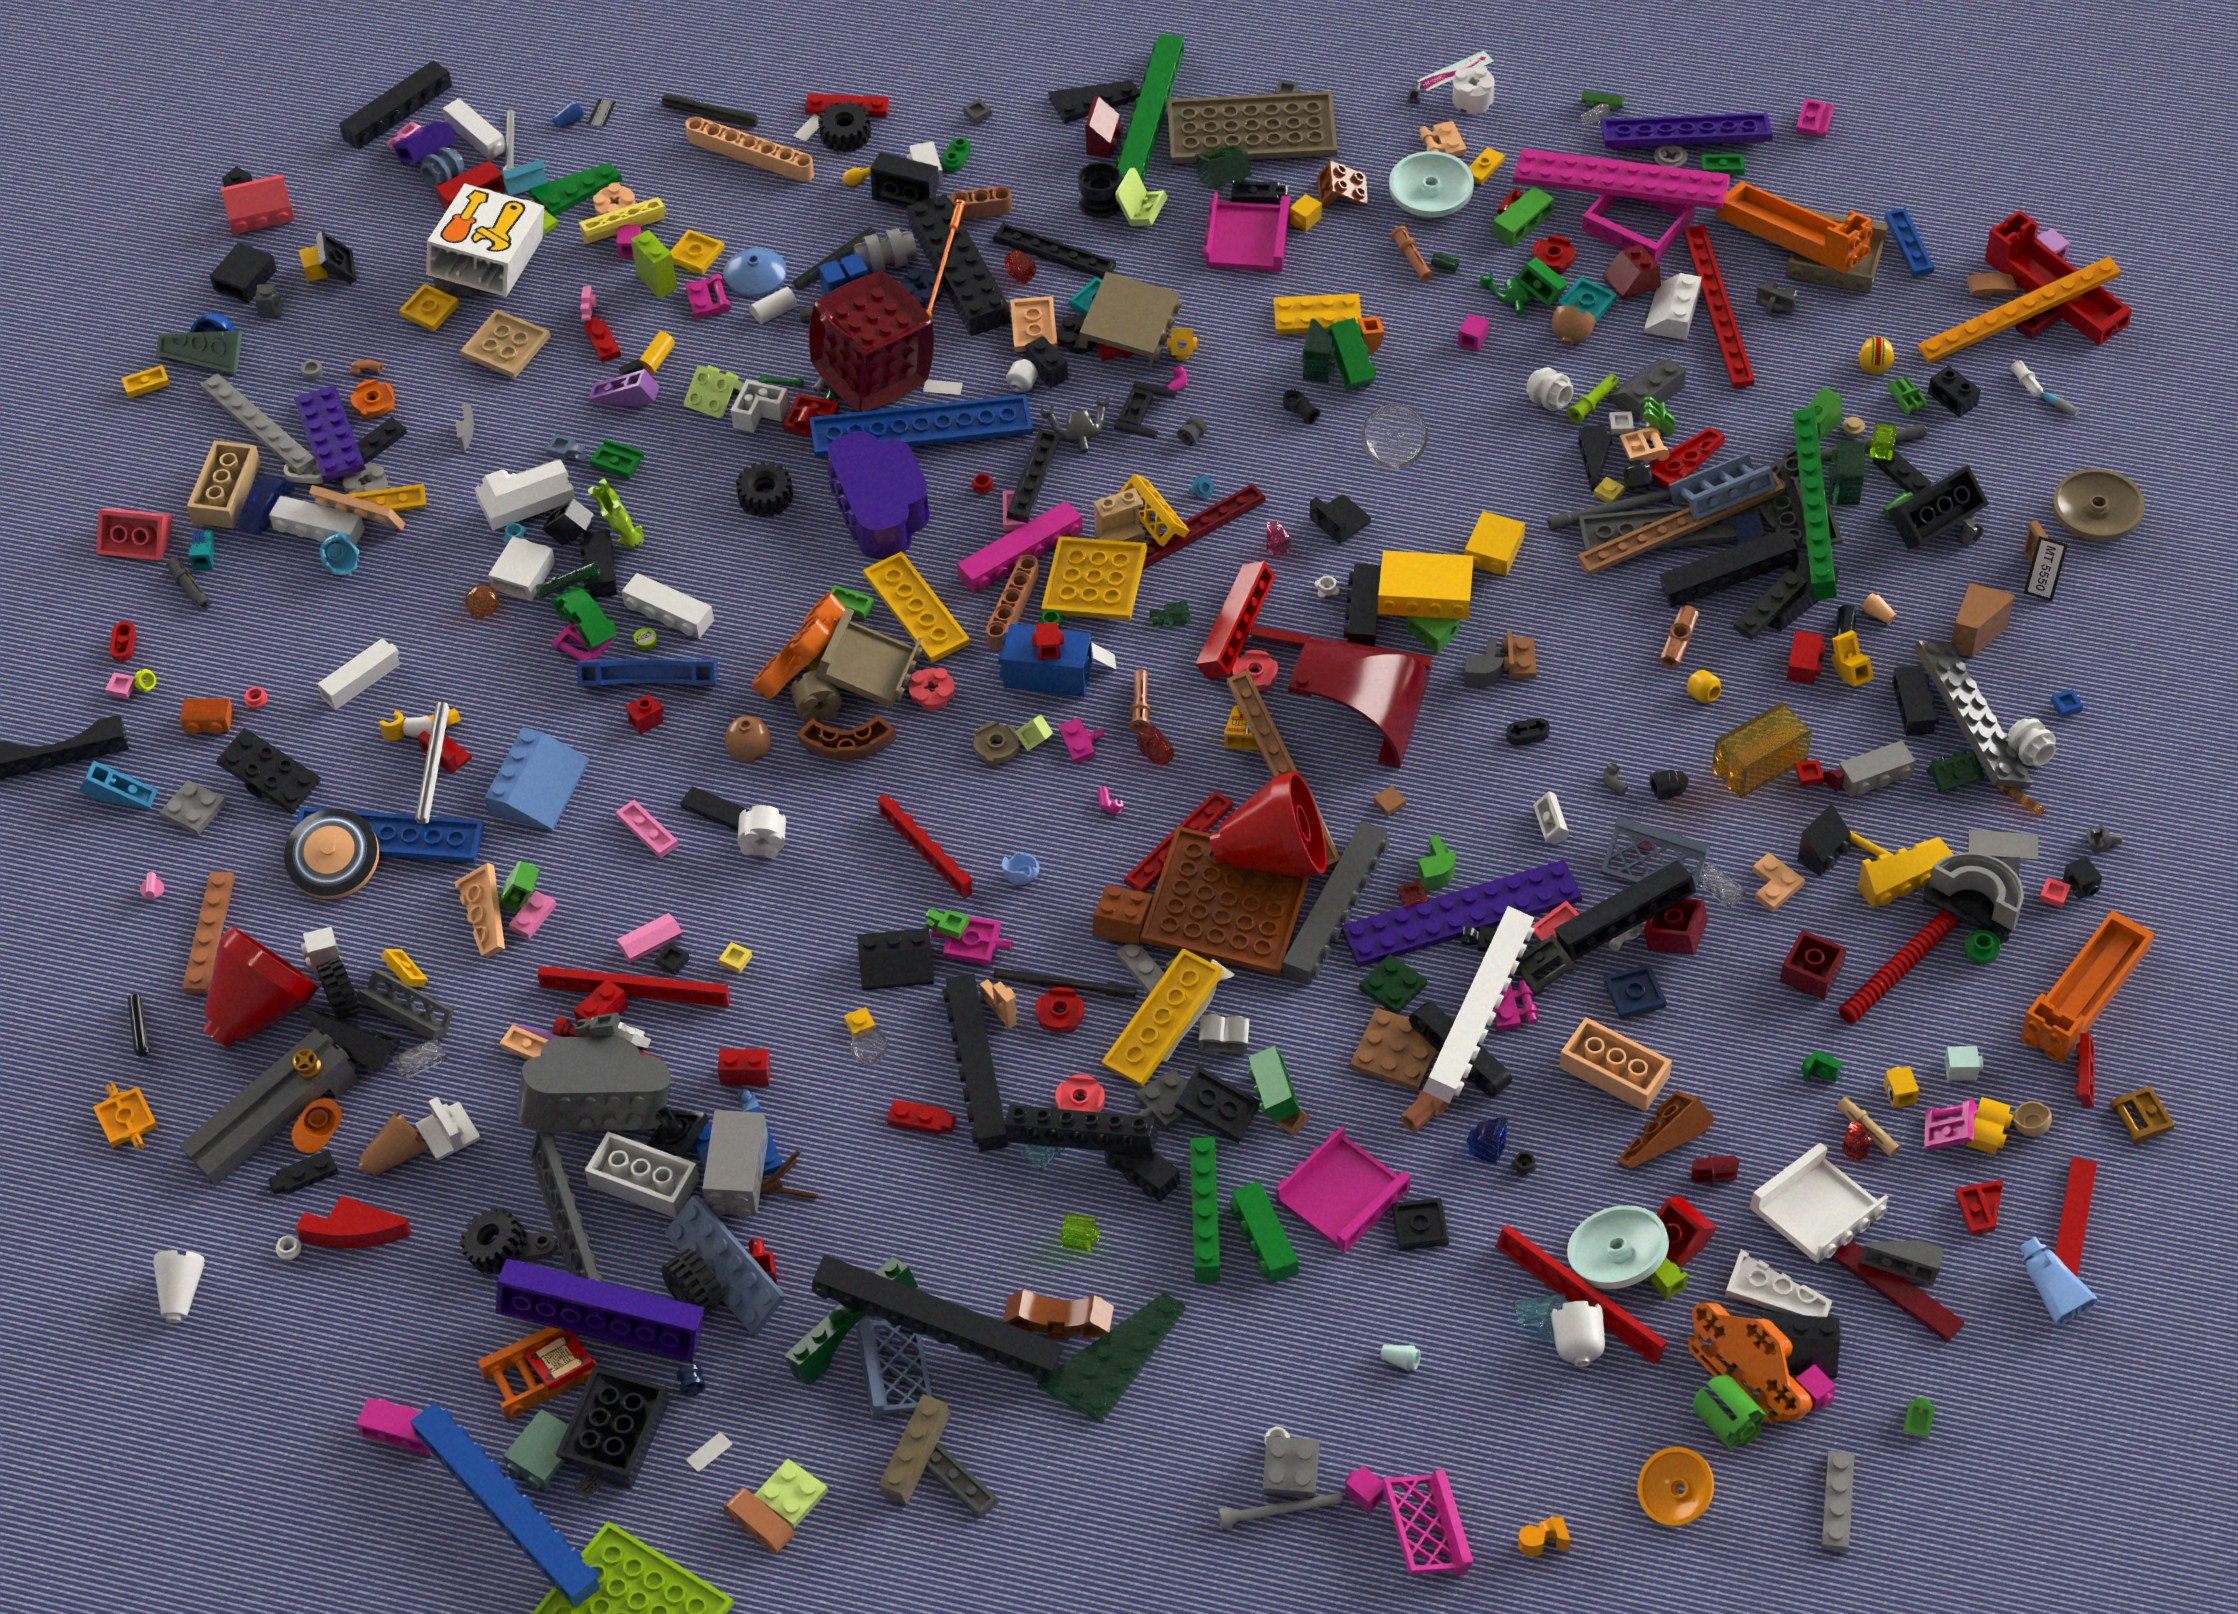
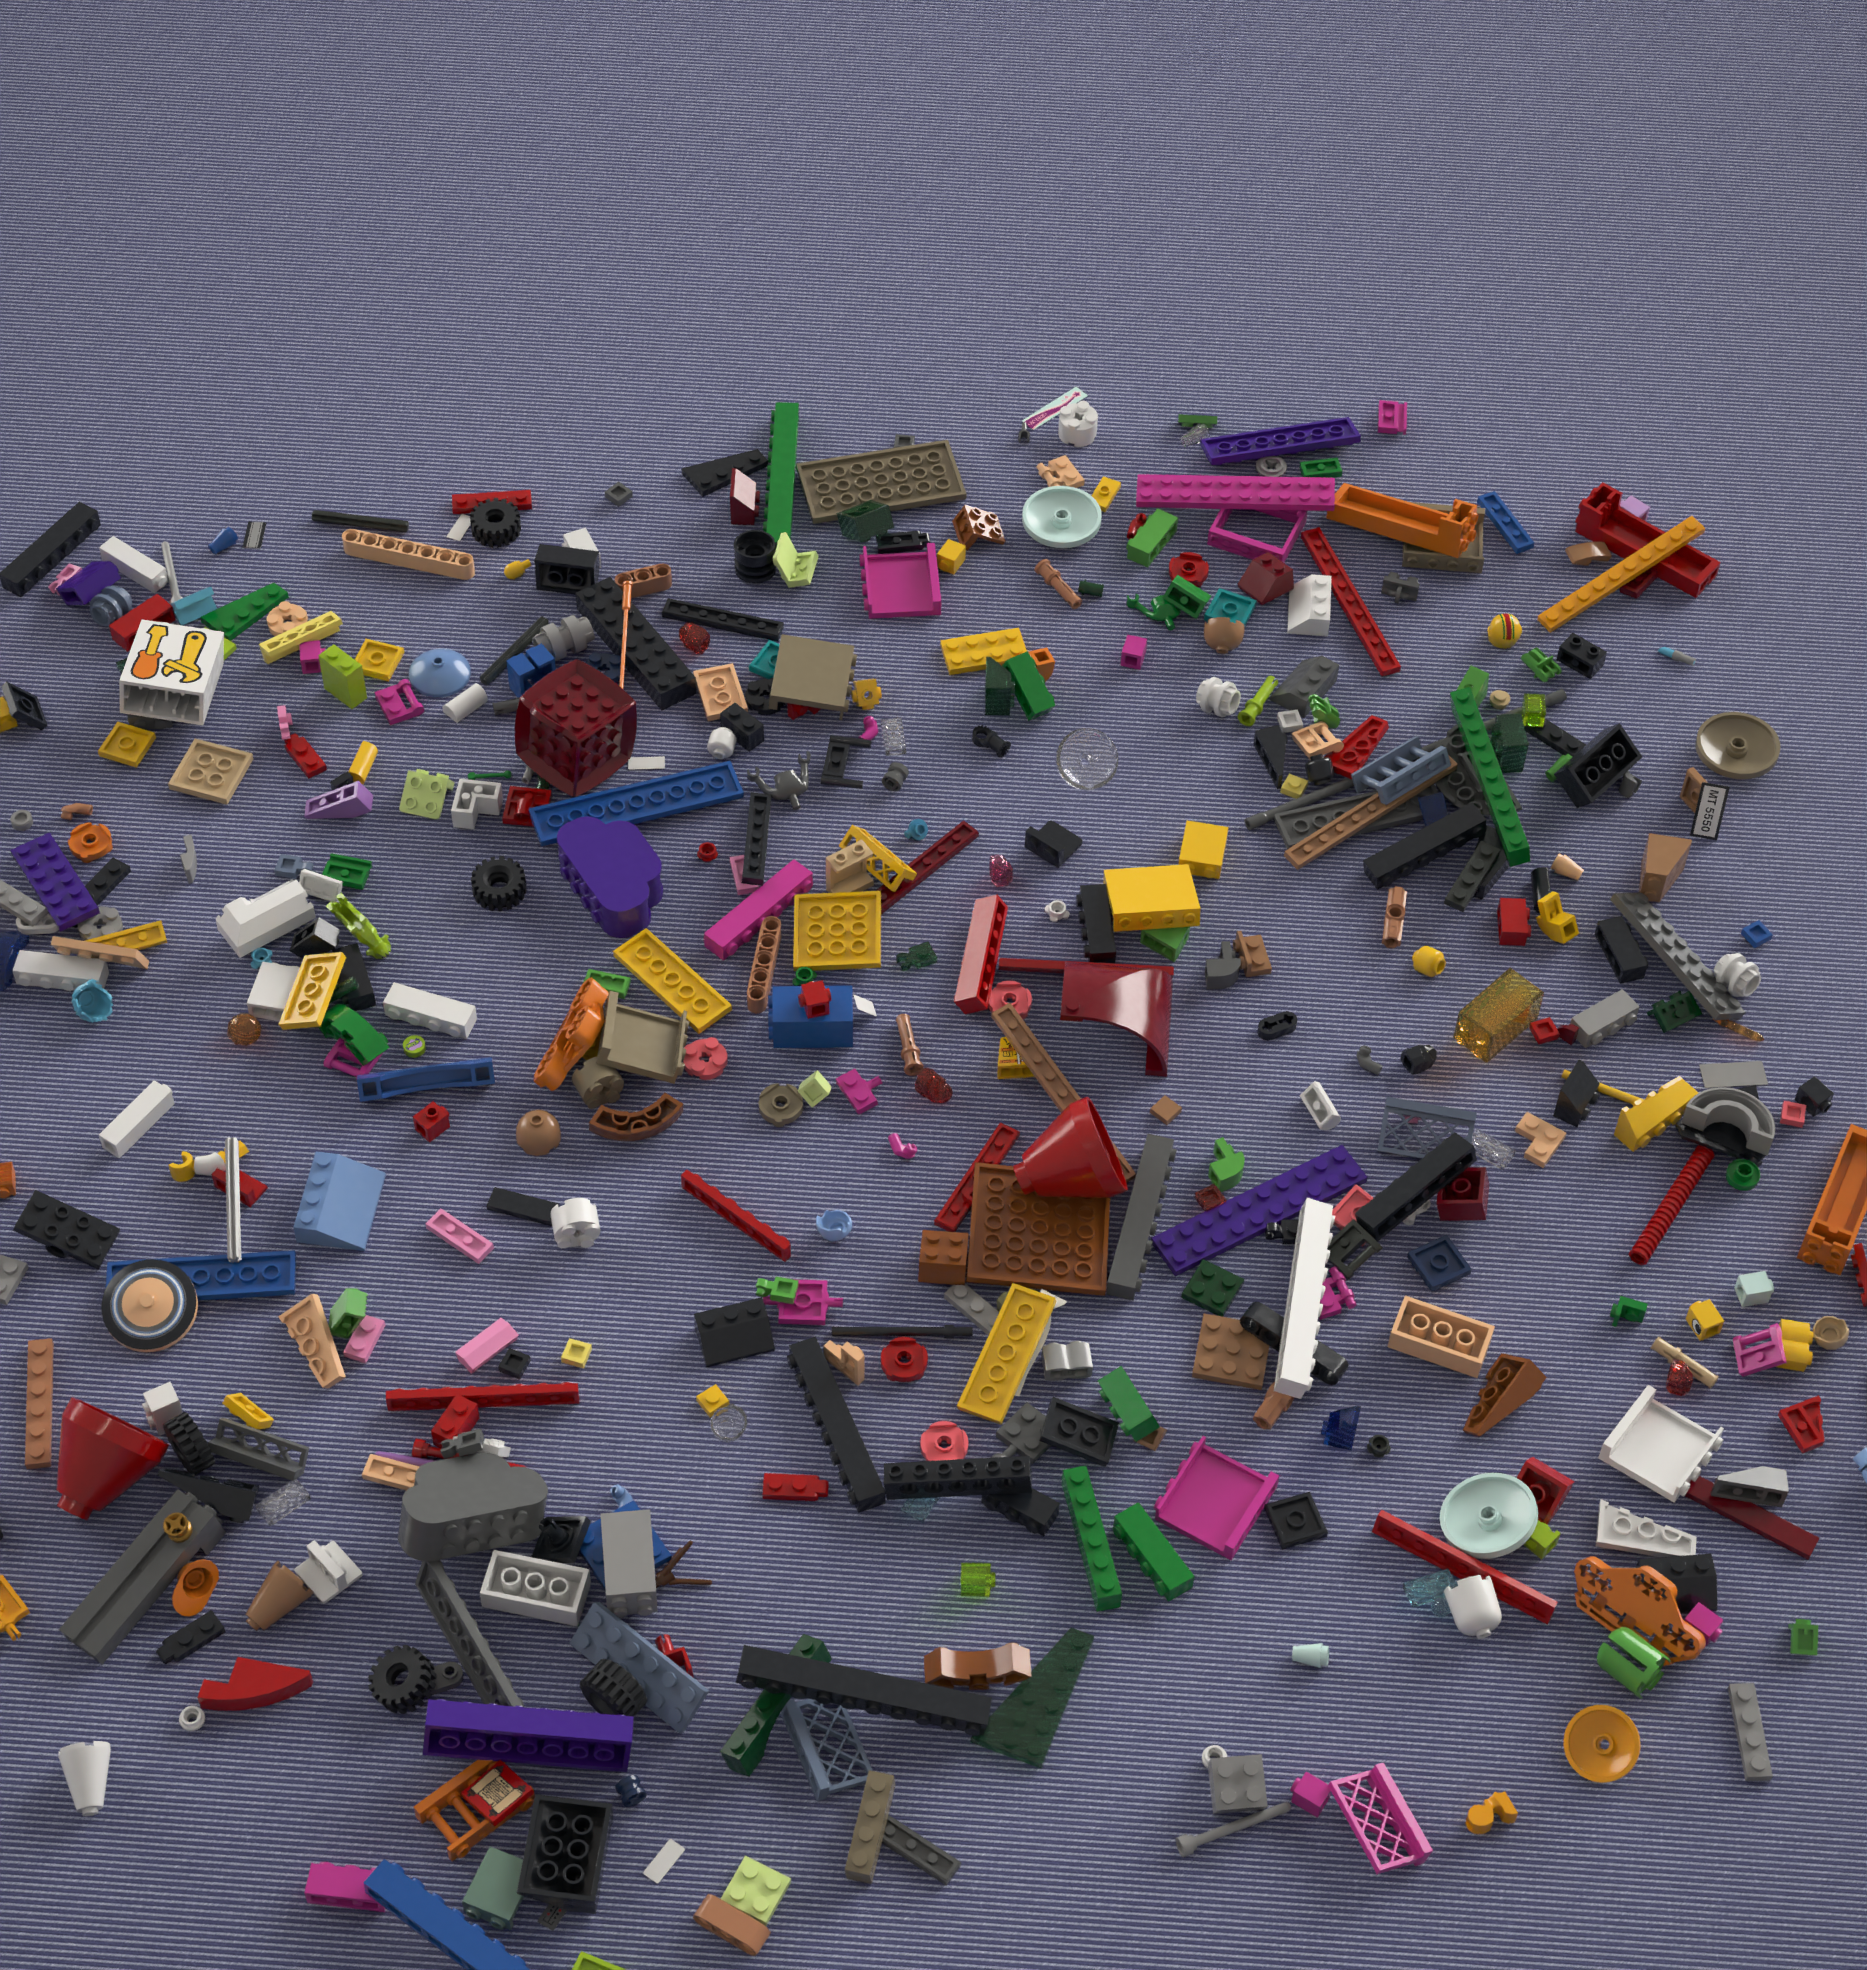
camera: 15 degrees left, 0 degrees up
(255, 697) = (34, 1152): coral plate -> none
(553, 570) = (312, 991): none -> yellow plate
(586, 469) = (320, 885): none -> white plate
(744, 1067) = (611, 1463): red brick -> none
(956, 155) = (607, 537): green plate -> none
(1201, 390) = (893, 736): none -> clear plate
(1714, 1169) = (1556, 1425): dark red arm -> none
(1813, 964) = (1596, 1214): dark red brick -> none
(2026, 378) = (1642, 636): white axle -> none
(2101, 839) = (1820, 1057): dark grey piece -> none

